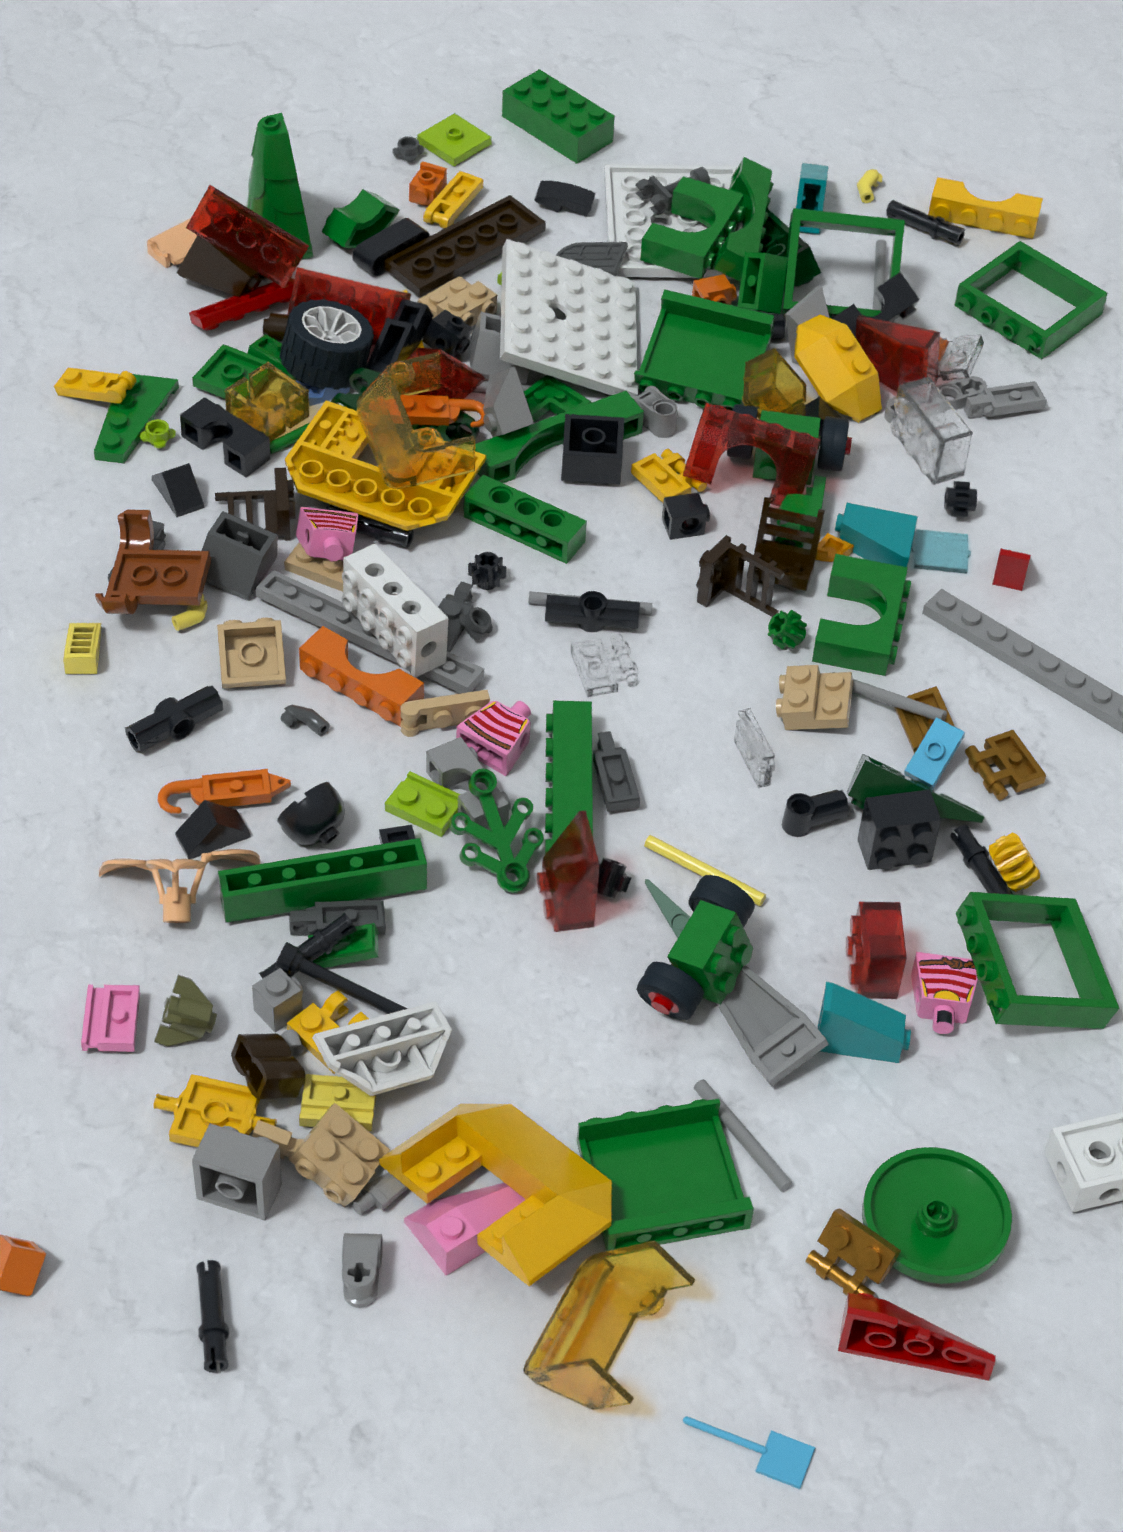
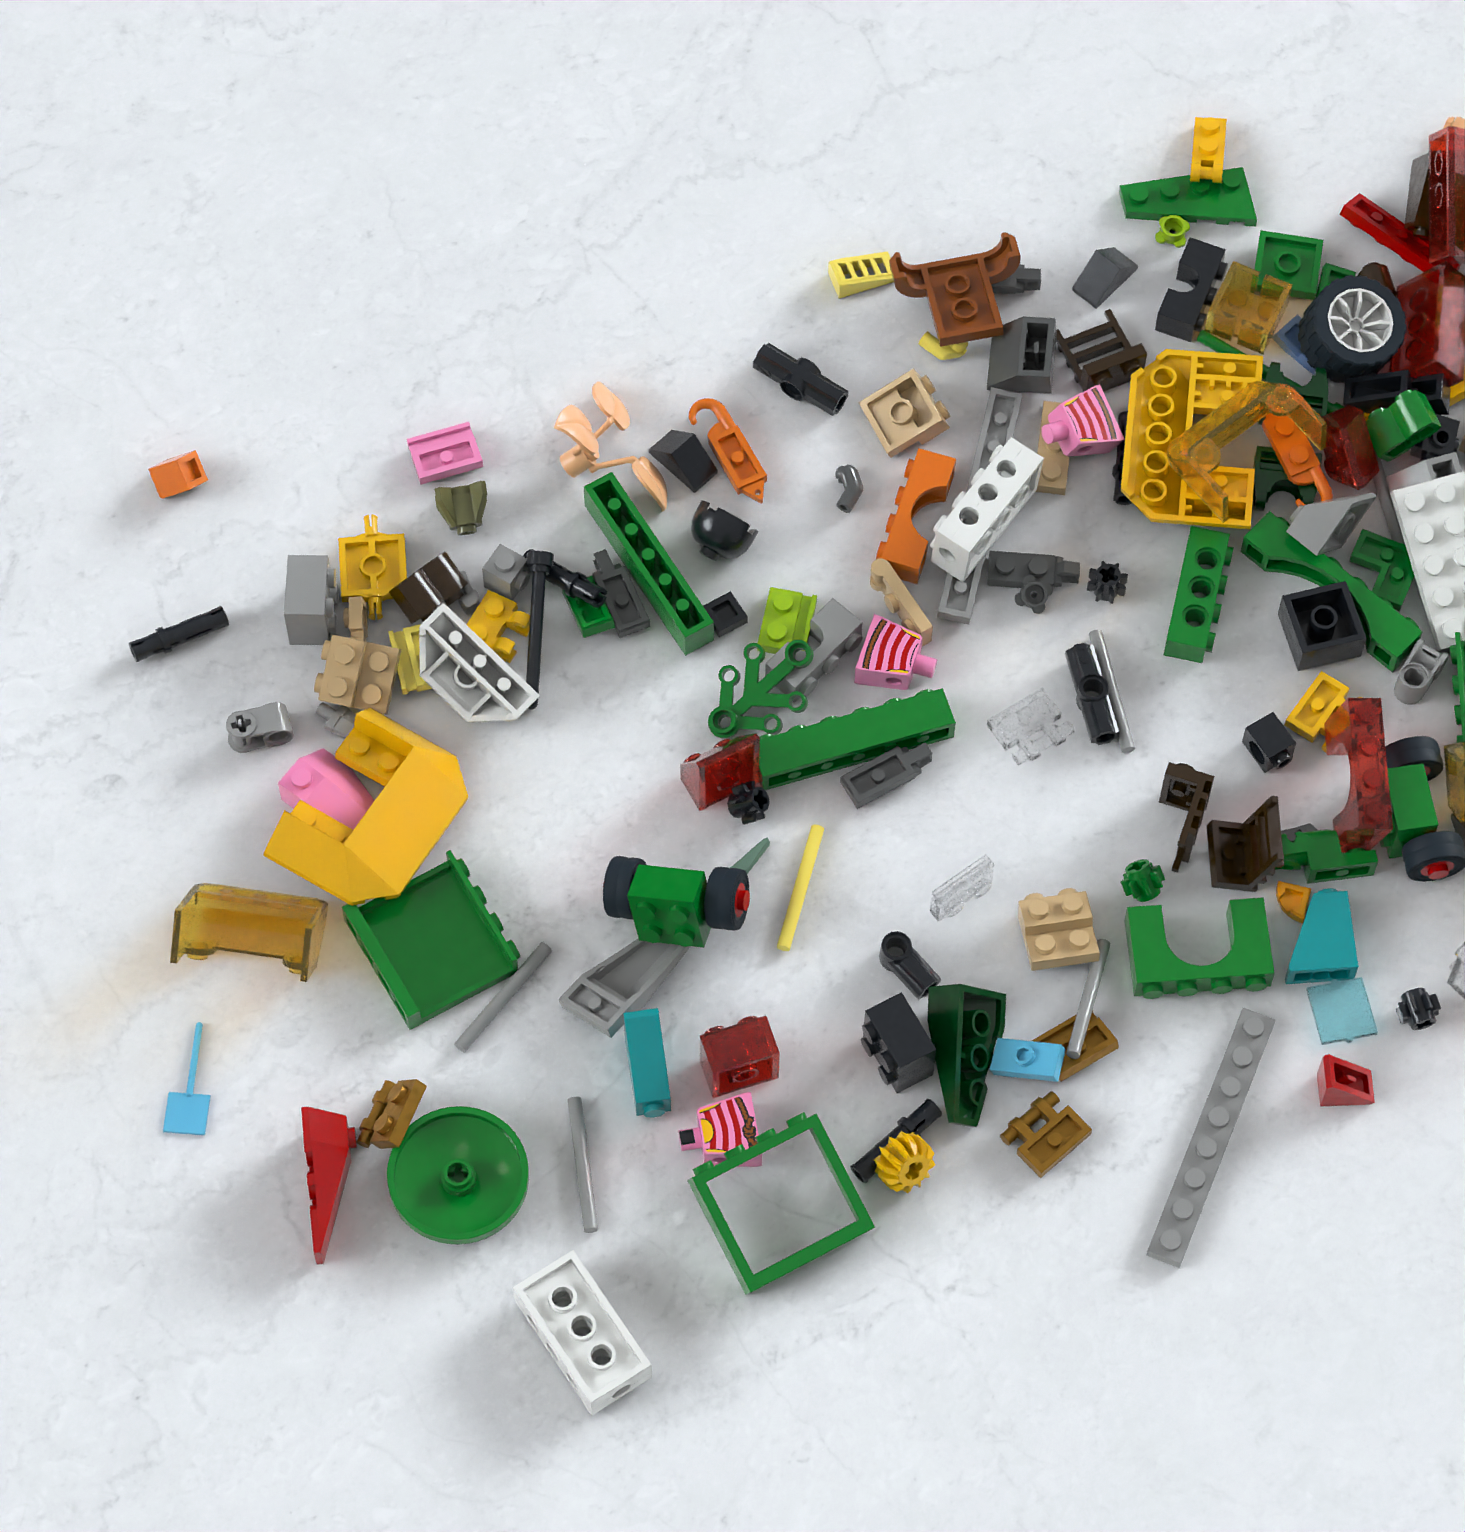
camera: 75 degrees right, 15 degrees up
(437, 329) = (1402, 425): none -> green brick
(941, 1117) = (582, 1165): none -> light grey bar

